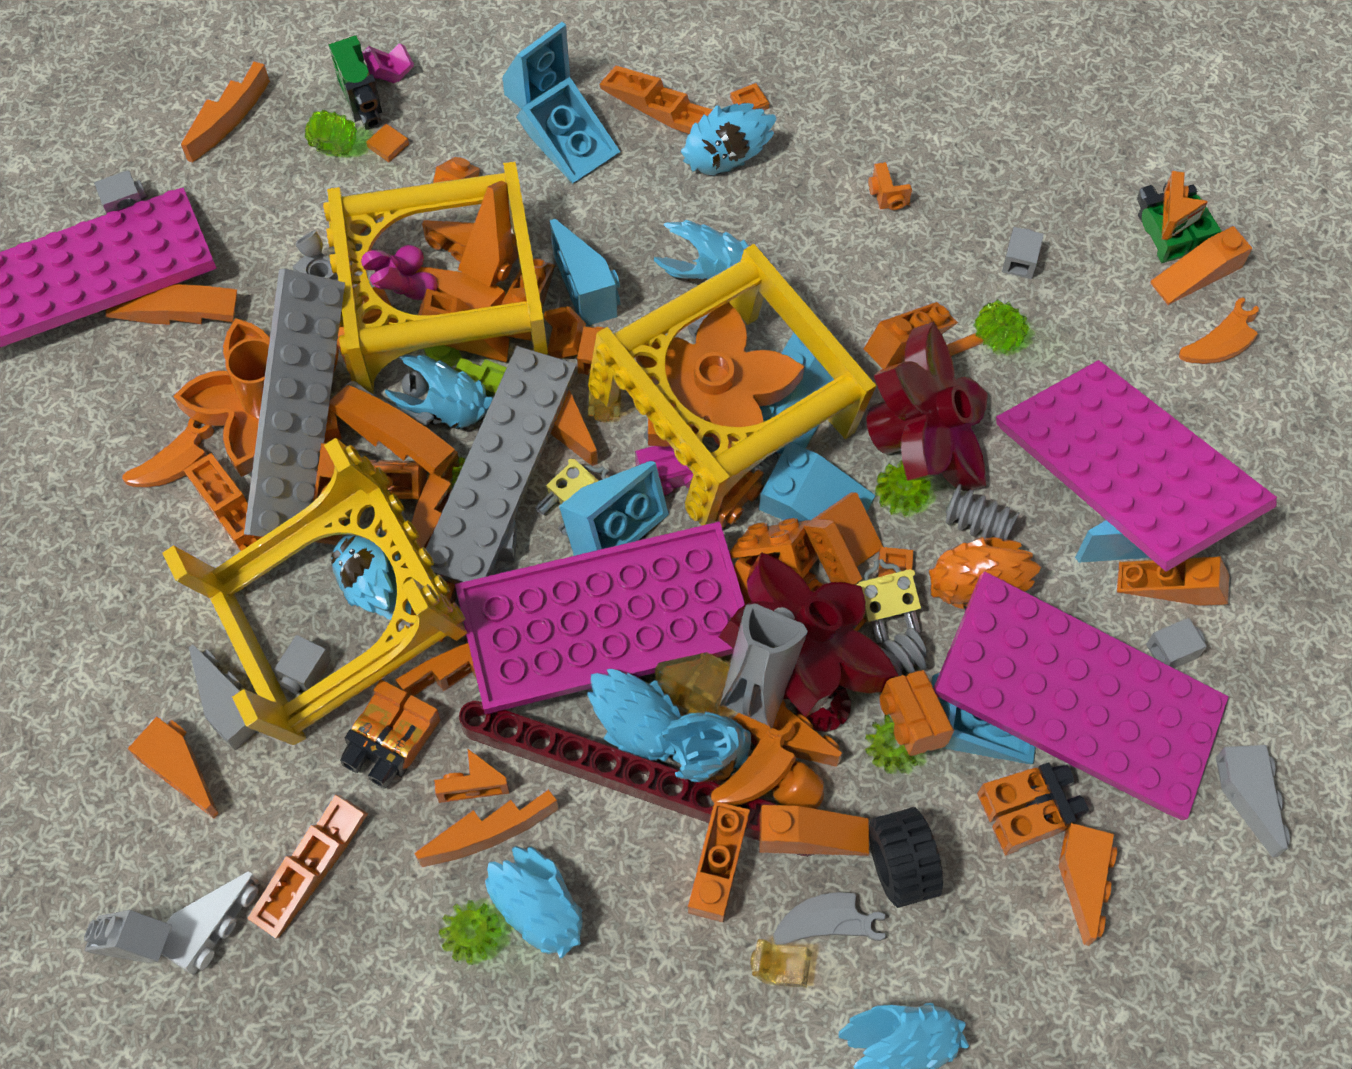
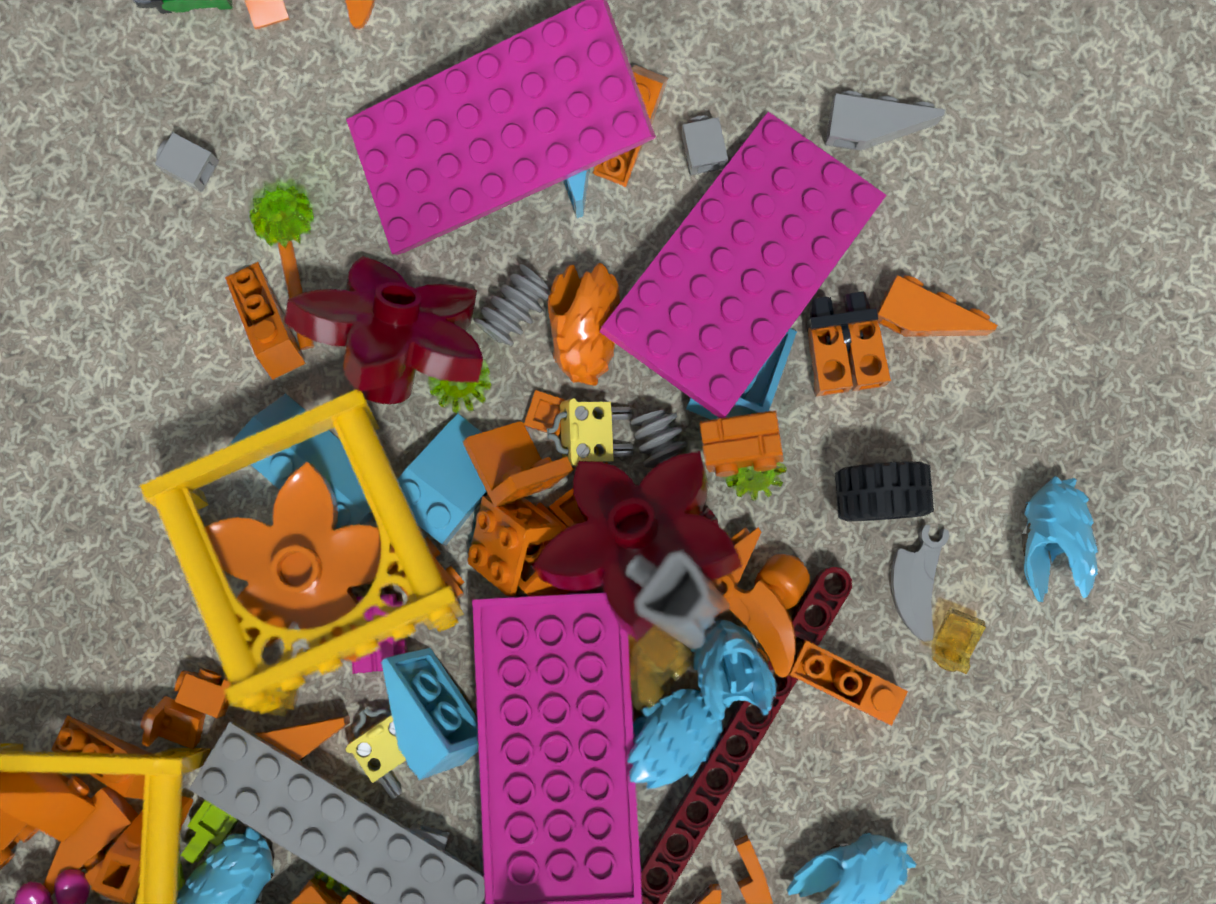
camera: 80 degrees left, 20 degrees up
(585, 276) = (123, 682): medium azure slope -> none
(715, 250) = (111, 521): medium azure head -> none
(812, 831) = (843, 580): orange slope -> none
(888, 195) = (52, 301): orange bracket -> none

